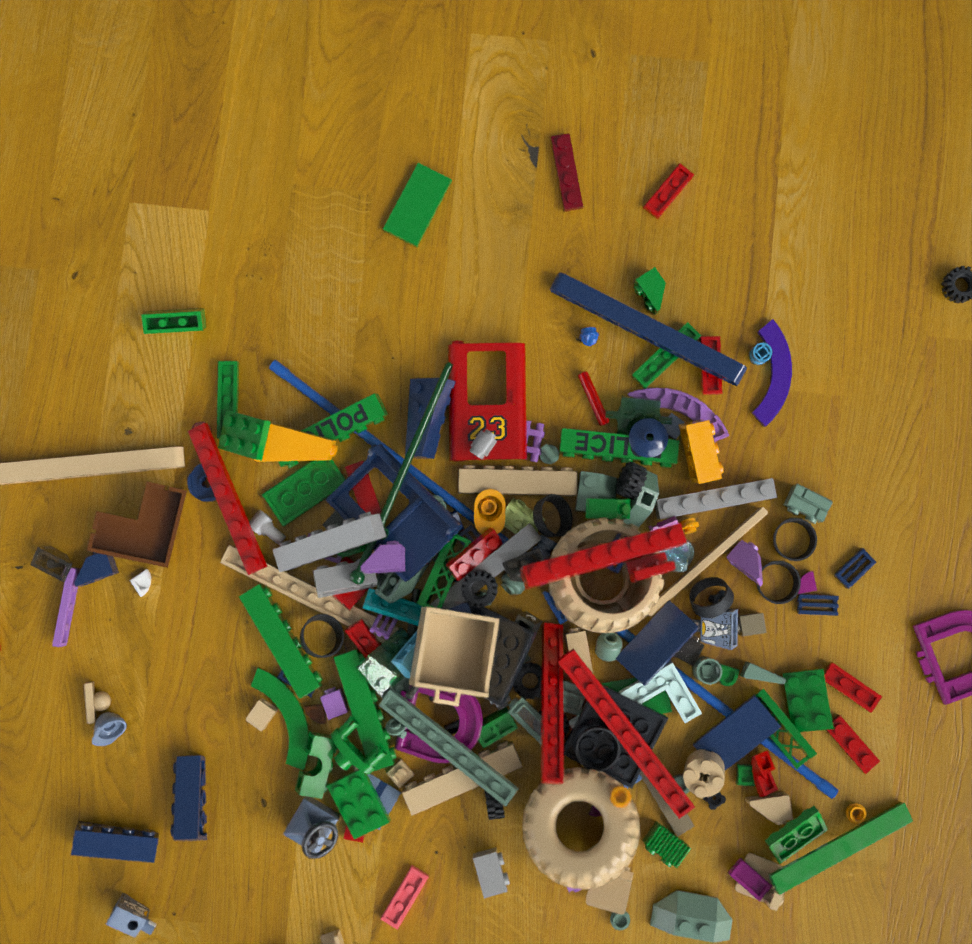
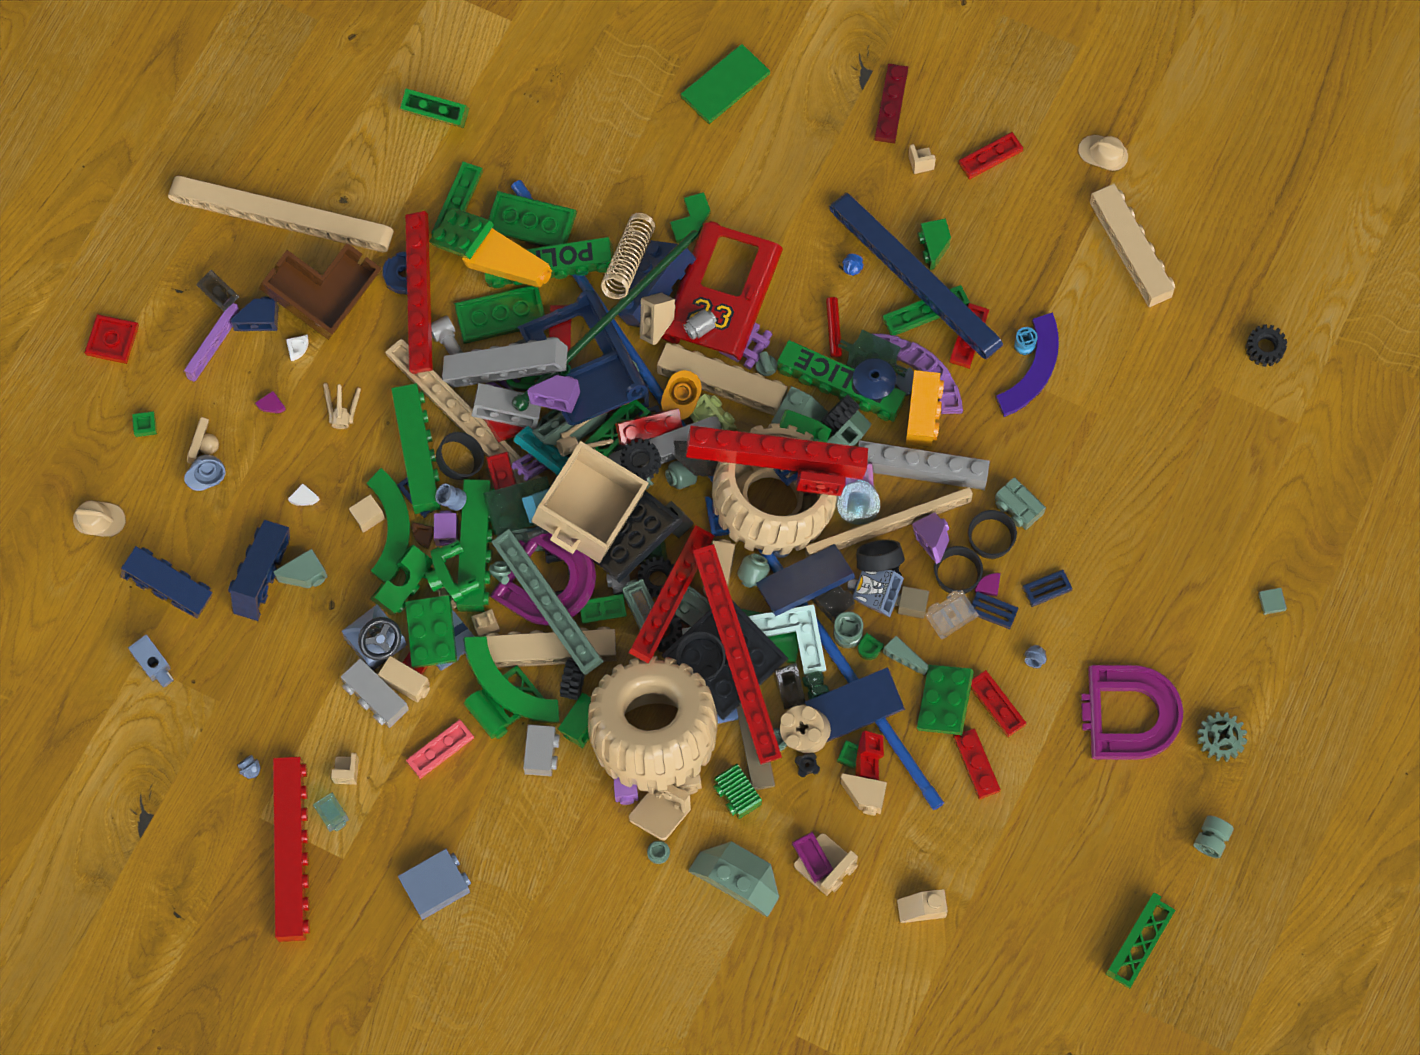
camera: 20 degrees right, 15 degrees down
(34, 800) = (99, 519): none -> tan piece
(38, 703) = (144, 424): none -> green plate
(140, 643) = (270, 403): none -> magenta tile
(201, 717) = (303, 496): none -> white tile
(202, 635) = (340, 417): none -> tan plant
(229, 786) = (302, 571): none -> sand green slope
(298, 395) = (531, 220): none -> green tile
(329, 679) = (451, 497): none -> sand blue wheel
(332, 874) = (374, 694): none -> light grey brick
(353, 853) = (404, 679): none -> tan brick
(396, 359) = (629, 228): none -> tan piece
(413, 595) = (568, 444): none -> tan plant
(435, 853) = (490, 714): none -> green piece
(439, 334) = (698, 213): none -> green tile
(439, 834) = (502, 690): none -> green tile
(441, 448) = (656, 316): none -> tan slope
(512, 831) = (576, 722): none -> green hinge
(564, 512) = (754, 408): black tyre -> none
(611, 216) = (921, 159): none -> tan panel
(620, 796) = (704, 690): light orange plate -> none
(675, 736) = (789, 686): none -> clear smoke slope
(689, 525) = (885, 483): light orange plate -> none
(698, 729) = (815, 684): none -> clear green wheel
(762, 153) = (1103, 152): none -> tan piece
(787, 624) = (951, 613): none -> clear brick
(788, 728) = (914, 719): green fence -> none
(796, 834) = (880, 827): green plate -> none
(819, 233) = (1132, 245): none -> tan brick
(840, 848) = (922, 854): green tile -> none
(854, 886) = (923, 906): none -> tan slope
(861, 813) = (954, 828): light orange plate -> none
(868, 634) = (1035, 656): none -> sand blue plate

